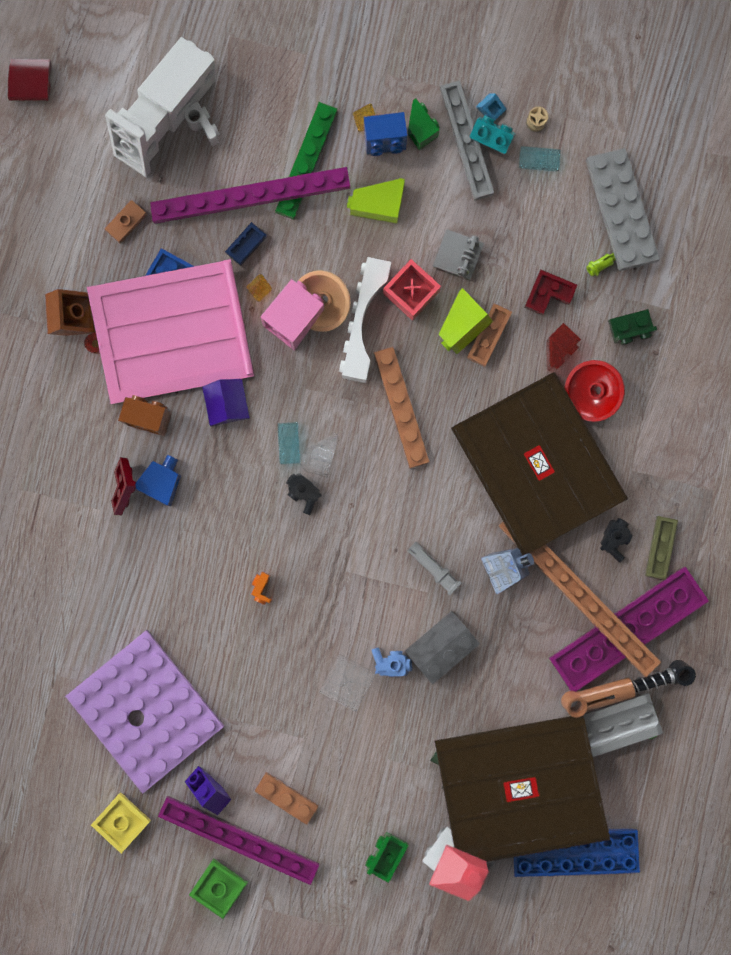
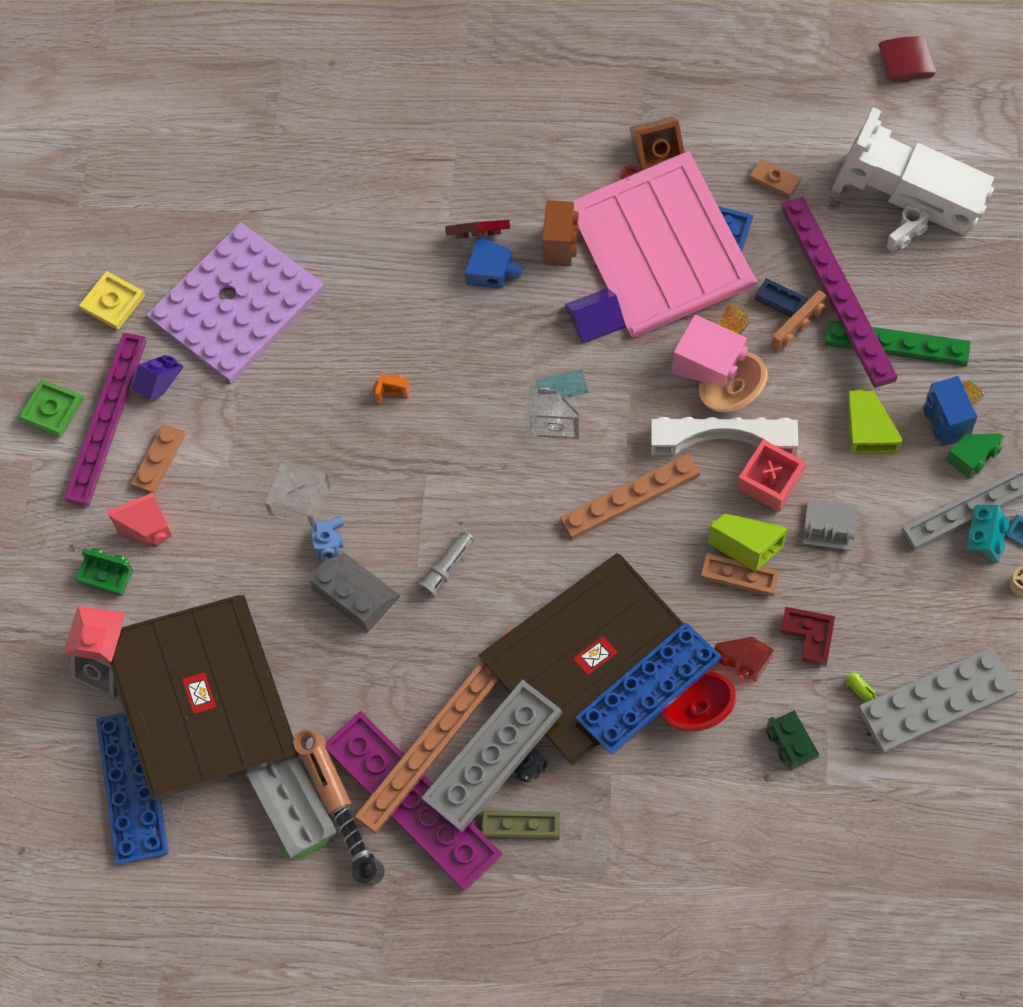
camera: 85 degrees right, 20 degrees down
(272, 233) = (799, 321): none -> nougat plate
(303, 488) = (512, 405): black piece -> none
(349, 817) = (141, 520): none -> coral slope
(507, 568) = (458, 639): sand blue torso -> none
(539, 158) = (975, 595): clear light blue plate -> none
(577, 426) = (648, 688): none -> blue plate
(613, 559) = (492, 755): none -> light grey plate

